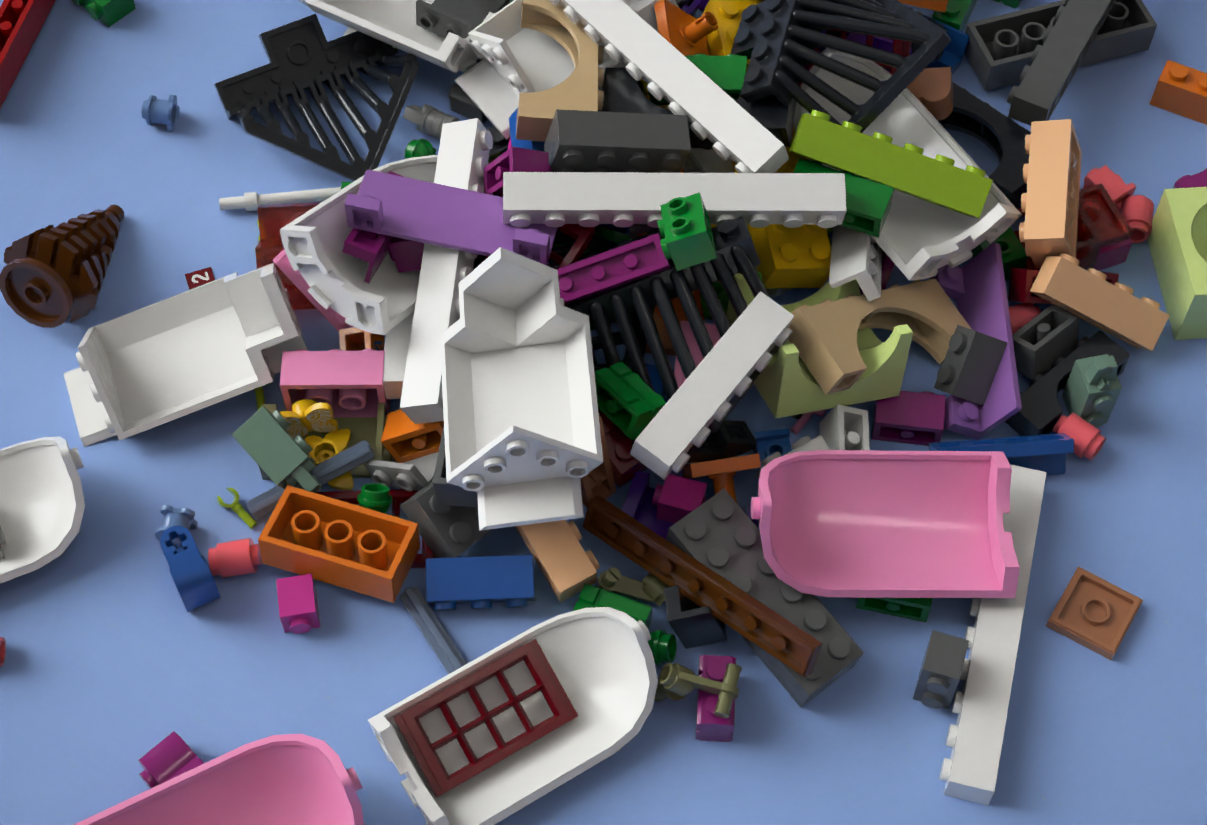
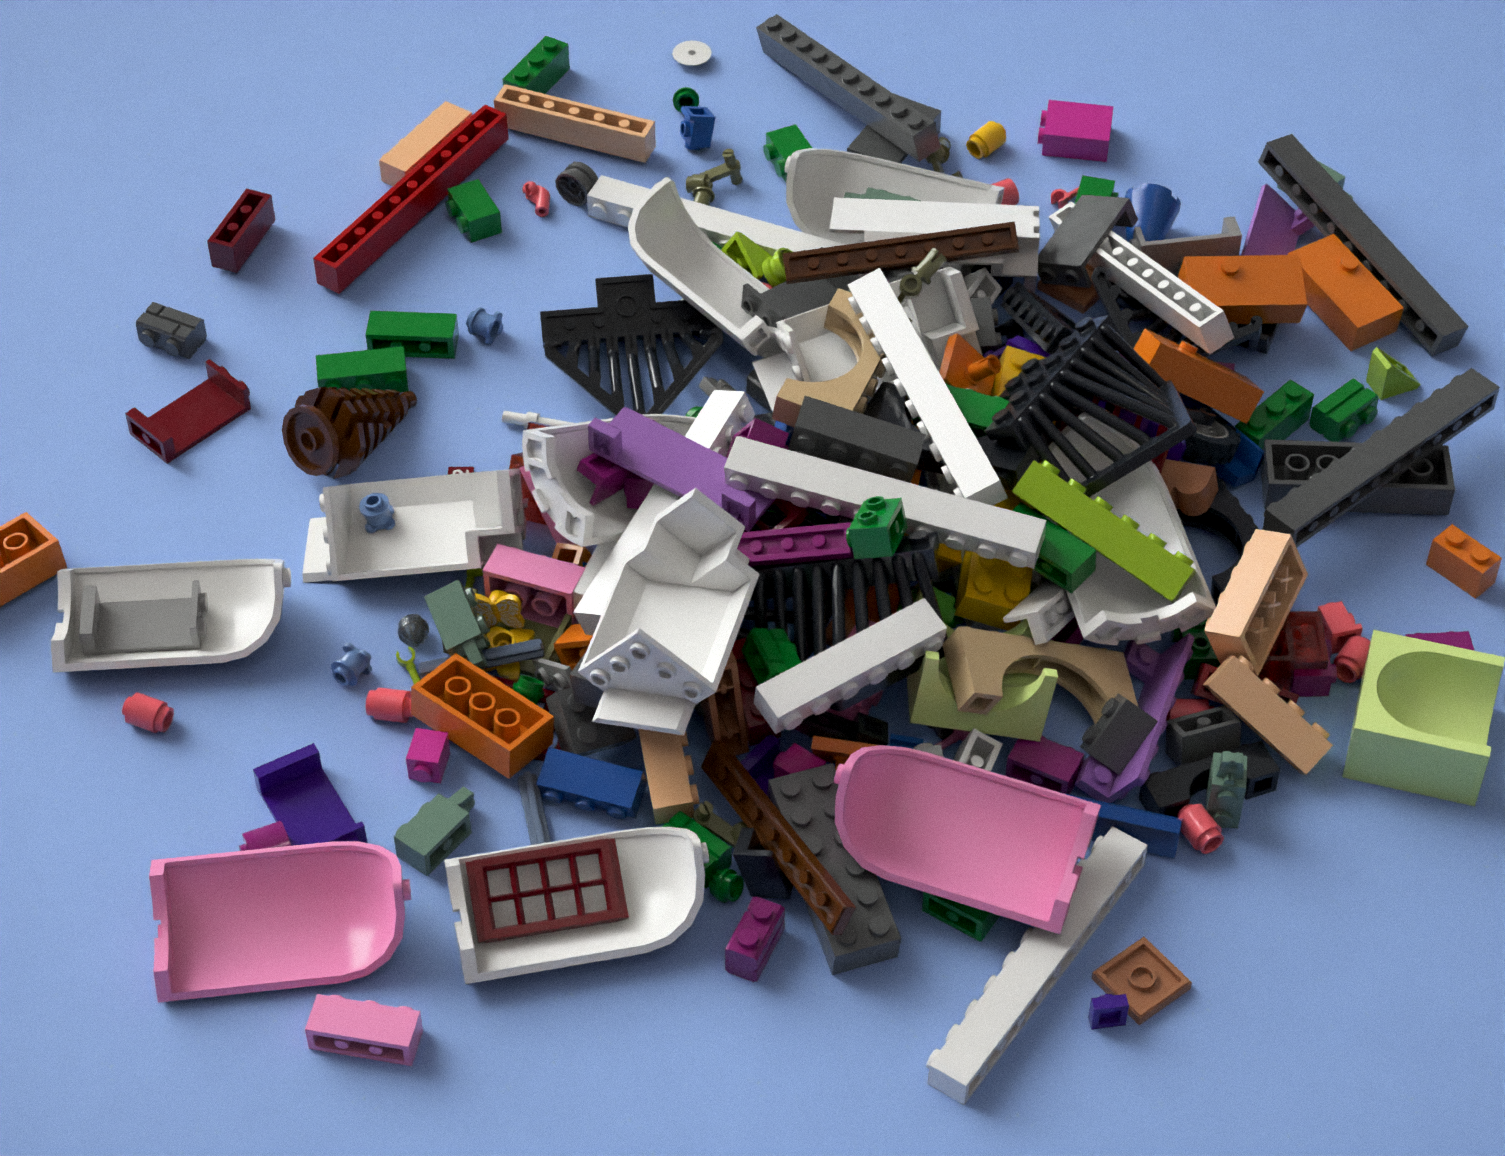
camera: 20 degrees right, 10 degrees down
(55, 198) = (364, 369): none -> green brick
(90, 143) = (419, 332): none -> green brick
(136, 349) = (377, 512): none -> medium blue brick
(188, 569) = (345, 697): blue piece -> none
(195, 701) = (305, 799): none -> dark purple panel
(224, 467) = (413, 630): none -> clear smoke plate
(340, 686) = (435, 831): none -> sand green hinge
(678, 680) = (723, 911): olive pin -> none
(940, 670) = (964, 973): dark grey brick -> none
(1083, 658) = (1108, 1011): none -> dark purple plate

